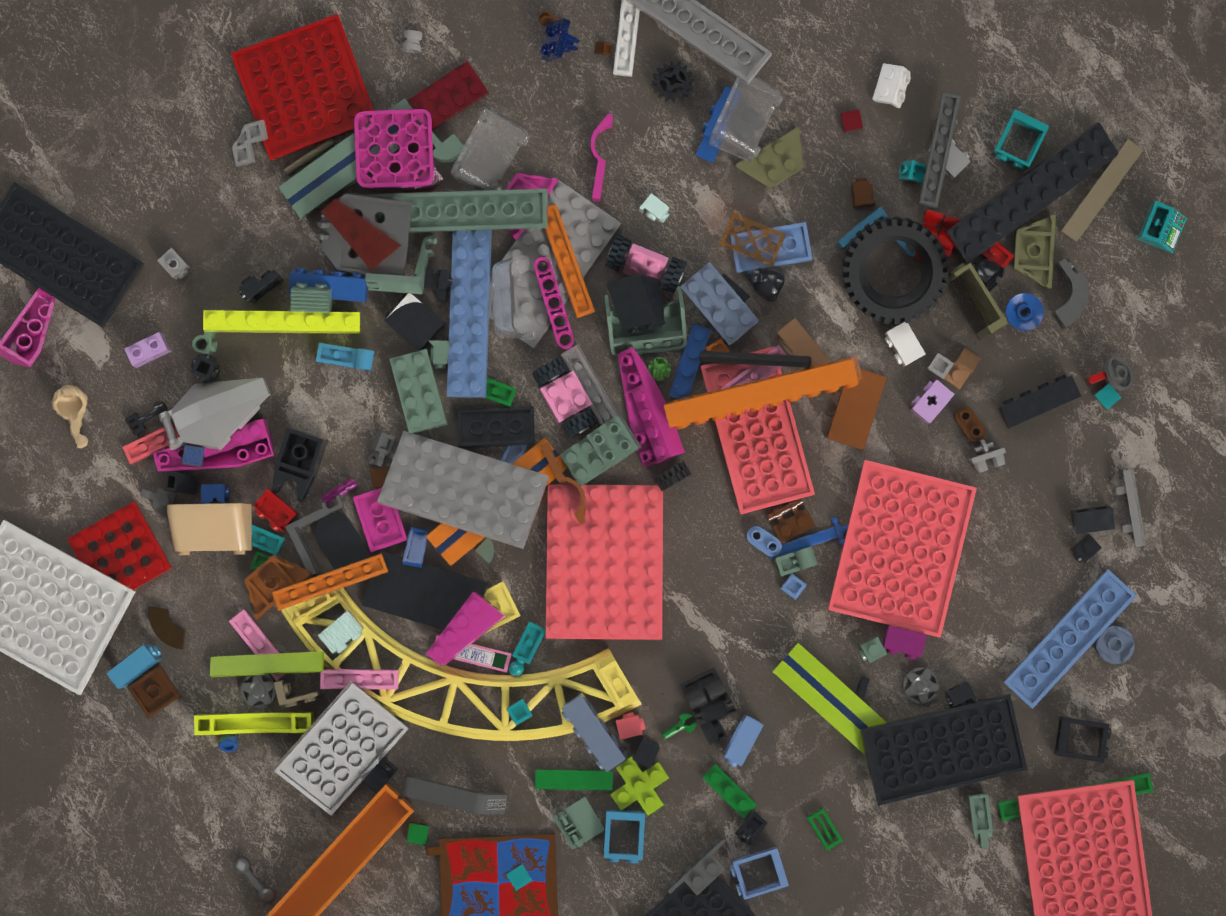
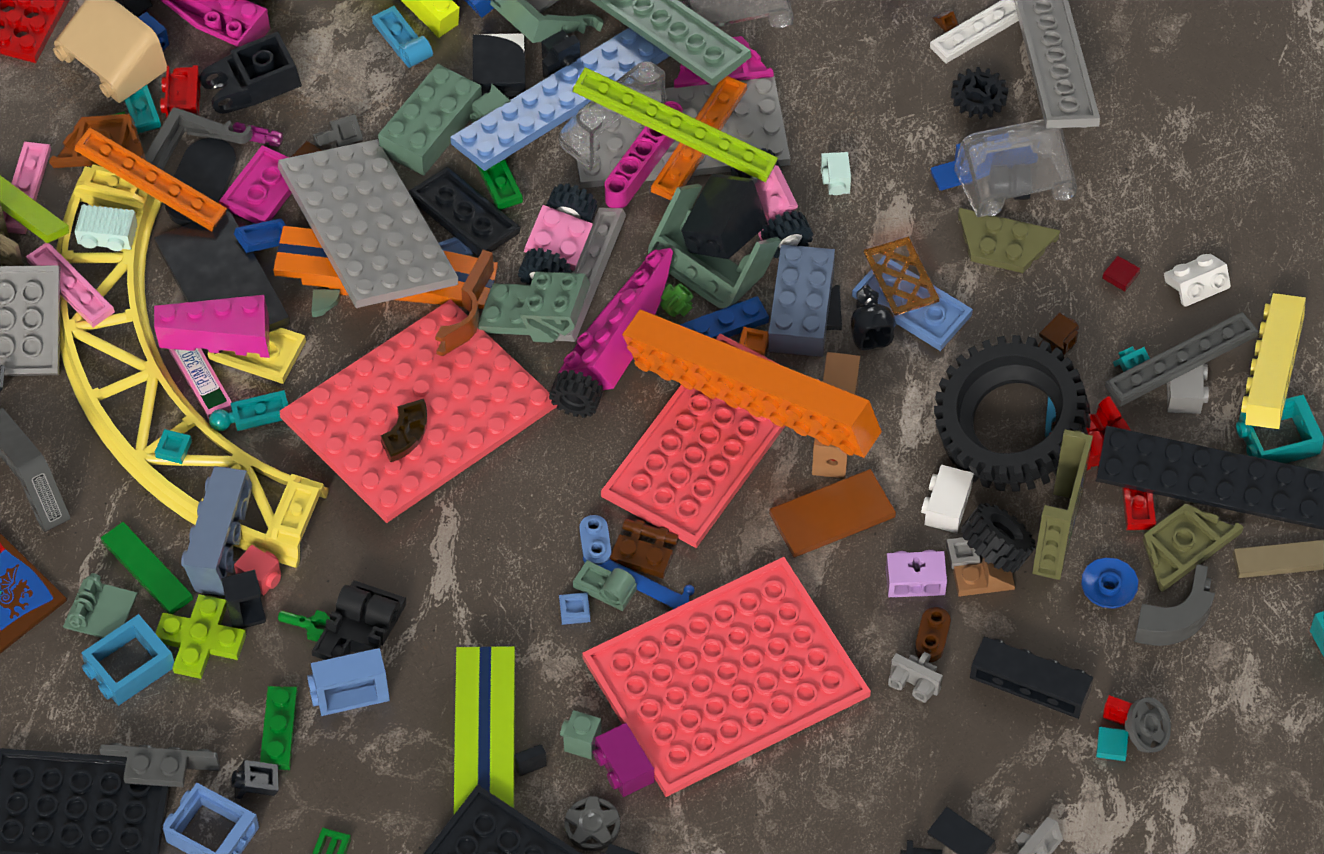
camera: 45 degrees right, 30 degrees down
(565, 280) = (675, 124): none -> lime tile
(605, 124) = (825, 99): dark pink piece -> none
(620, 583) = (407, 432): none -> dark brown tile
(755, 359) = (759, 347): black axle -> none
(947, 338) = (998, 537): none -> black tyre
(984, 103) = (1275, 361): none -> light yellow brick
(989, 272) = (1102, 513): black cylinder -> none

